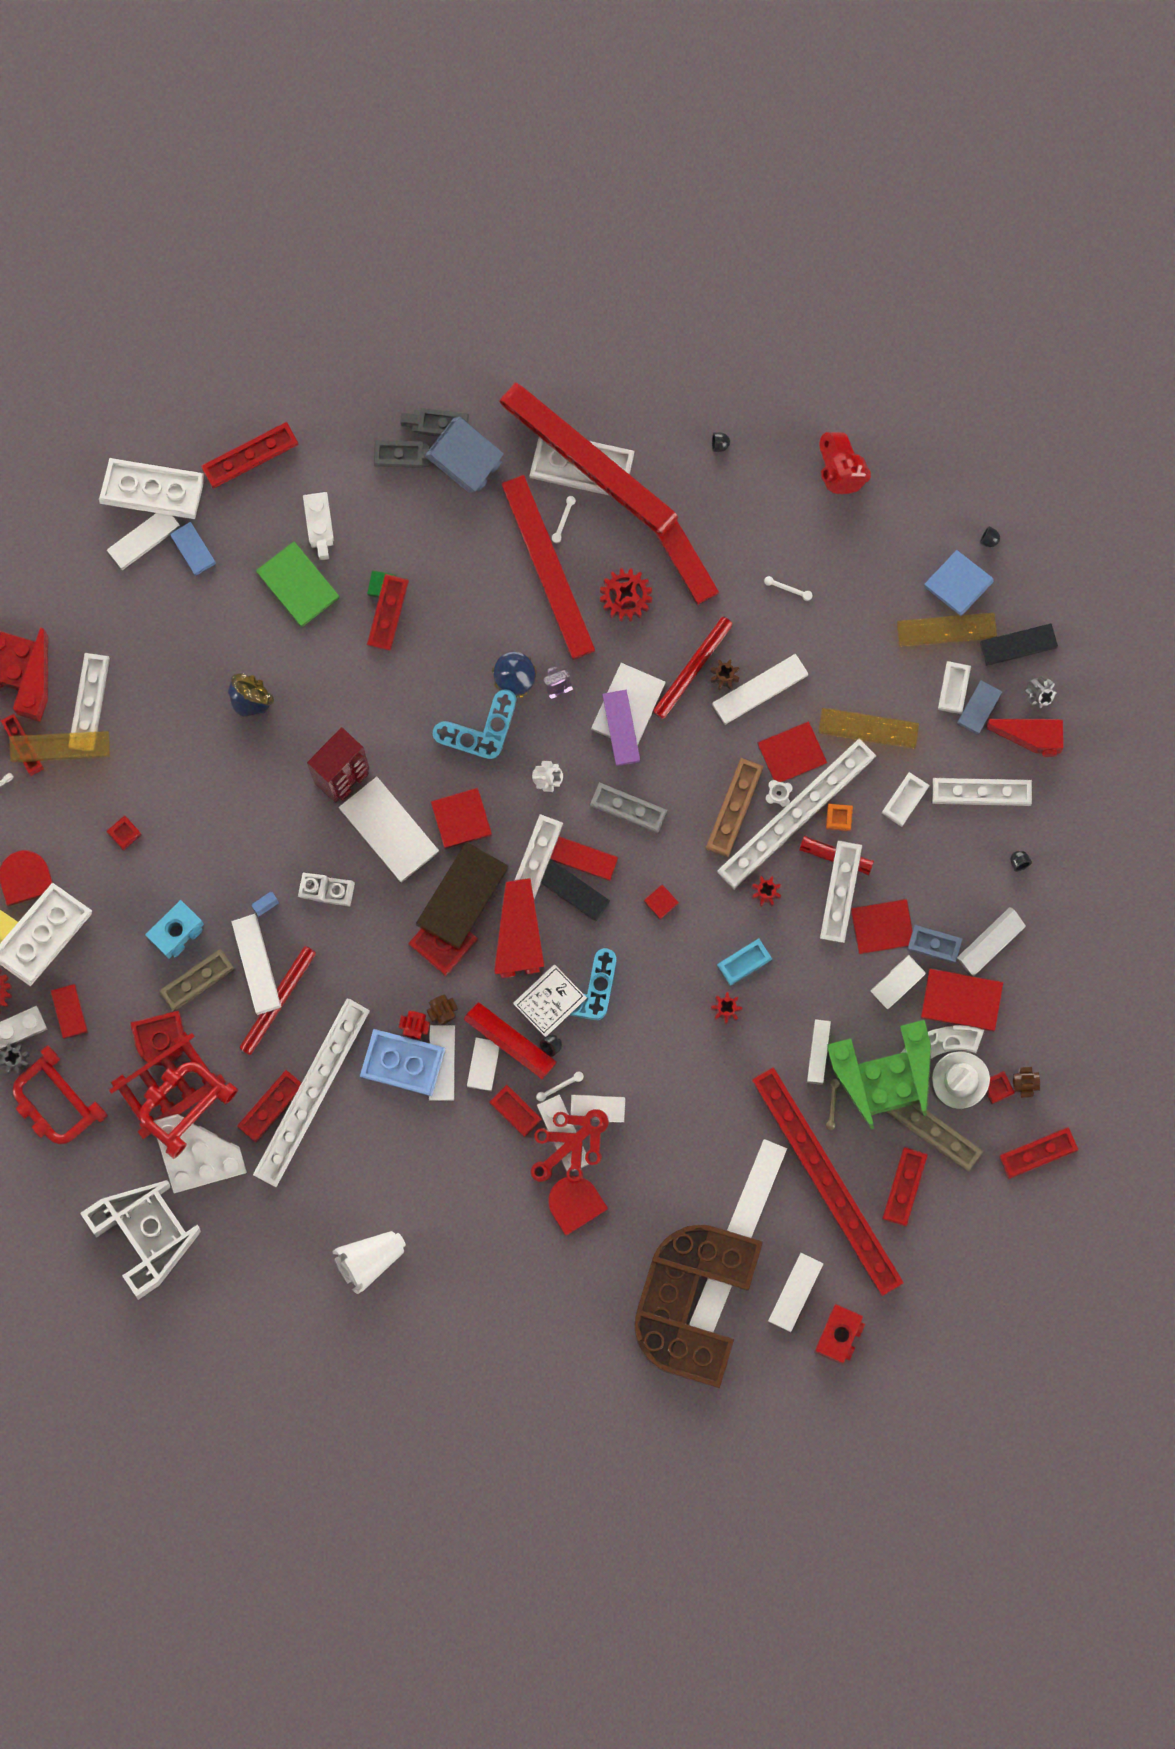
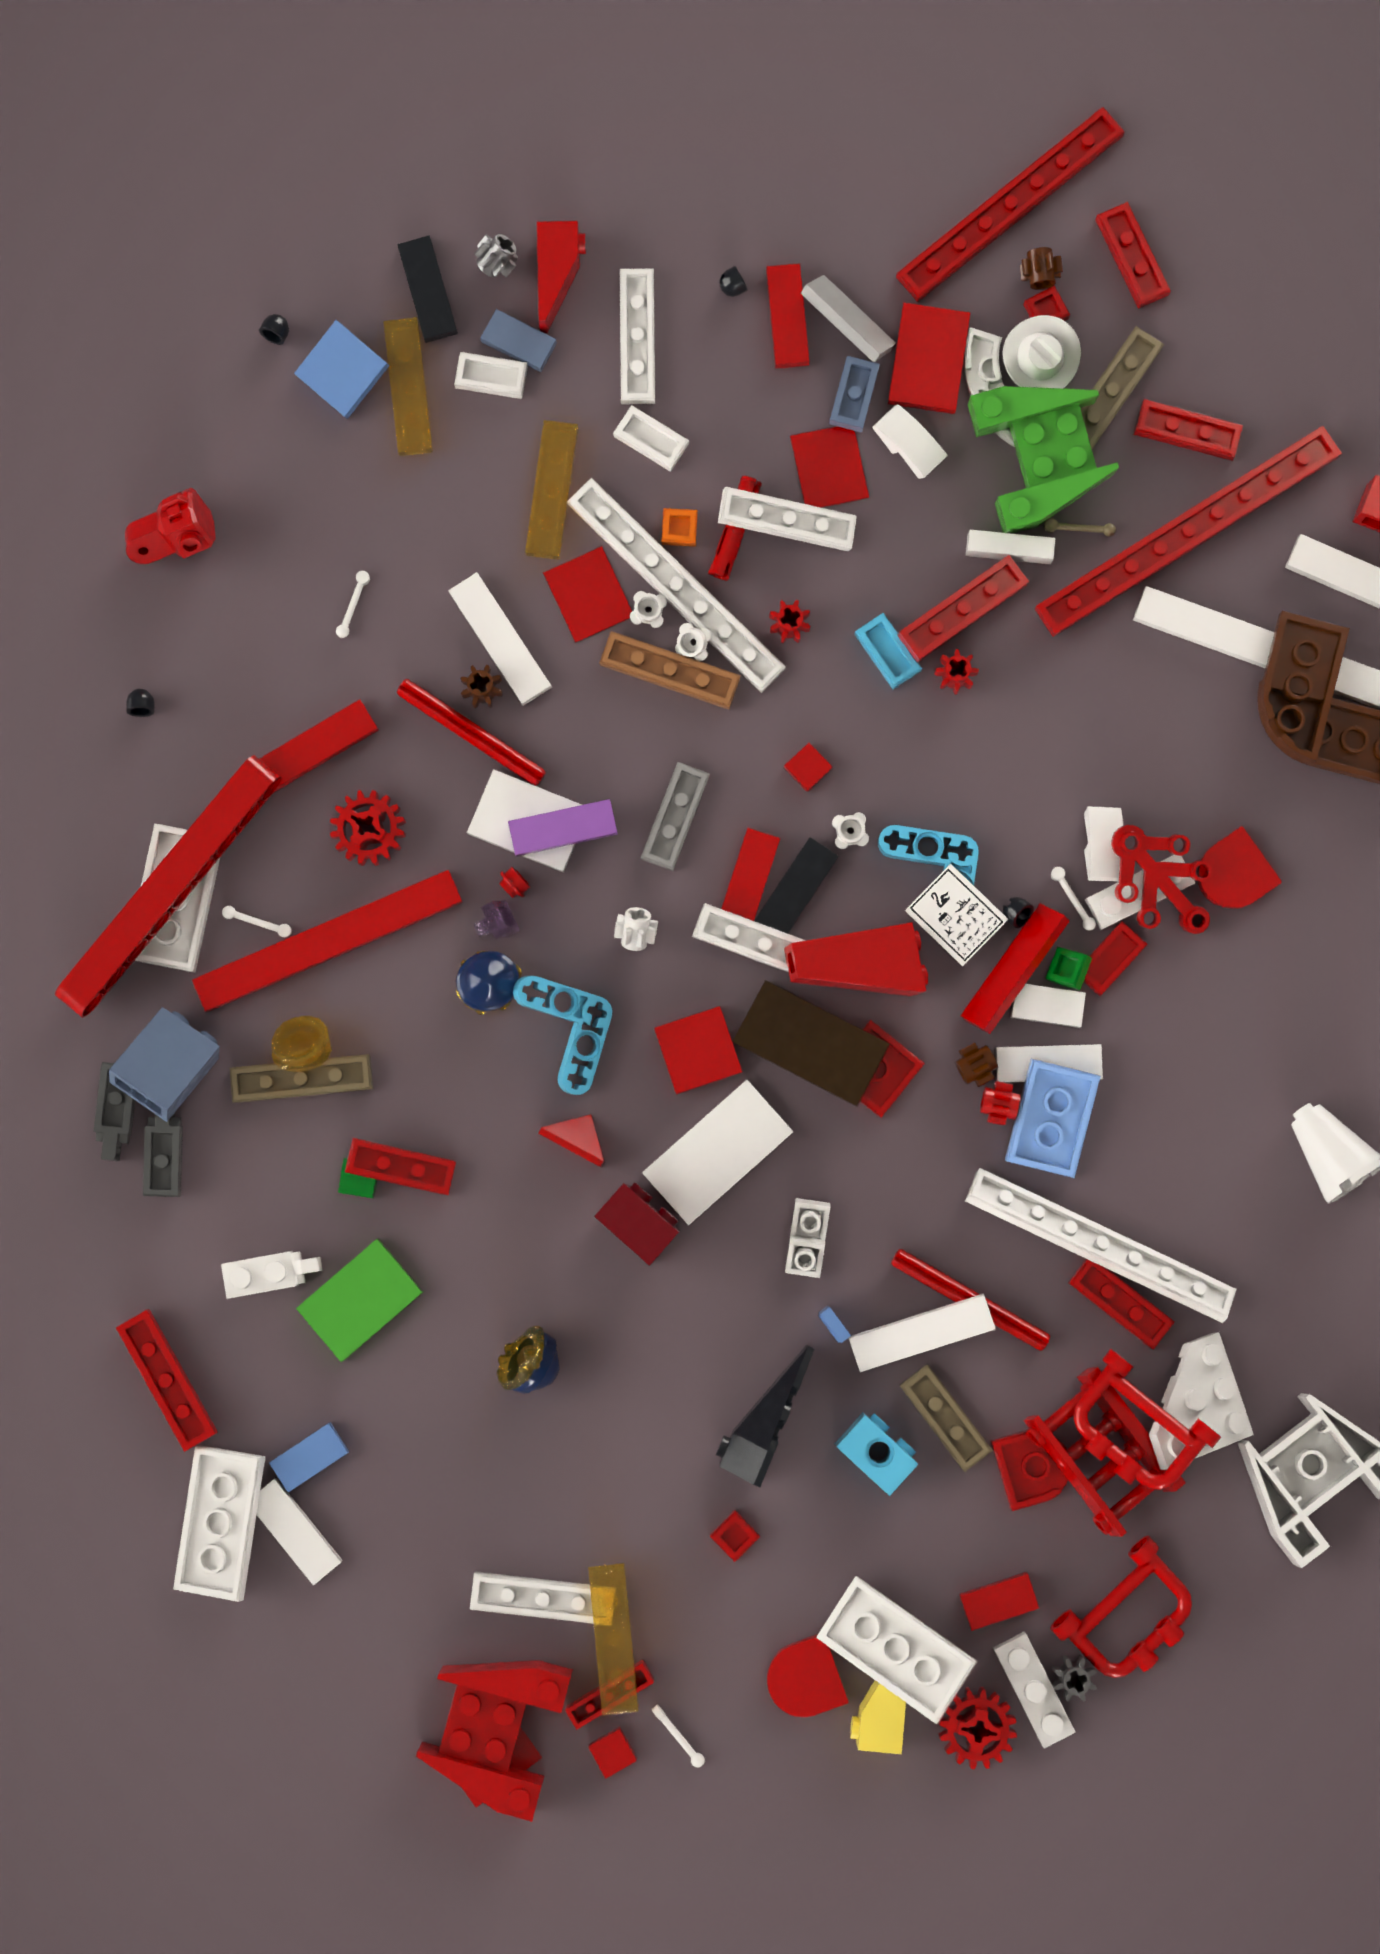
camera: 90 degrees left, 5 degrees up
(187, 845) = (755, 1437): none -> black wedge
(402, 734) = (578, 1137): none -> red slope
(452, 548) = (271, 1082): none -> dark tan tile
(475, 547) = (301, 1044): none -> clear yellow piece
(508, 1078) = (1068, 968): none -> green tile
(584, 694) = (514, 883): none -> red plate
(617, 923) = (854, 821): none -> white plate
(753, 817) = (684, 645): none -> white plate
(773, 1015) = (963, 608): none -> red plate
(995, 899) = (787, 316): none -> red tile
(1079, 1065) = (1010, 204): none -> red tile

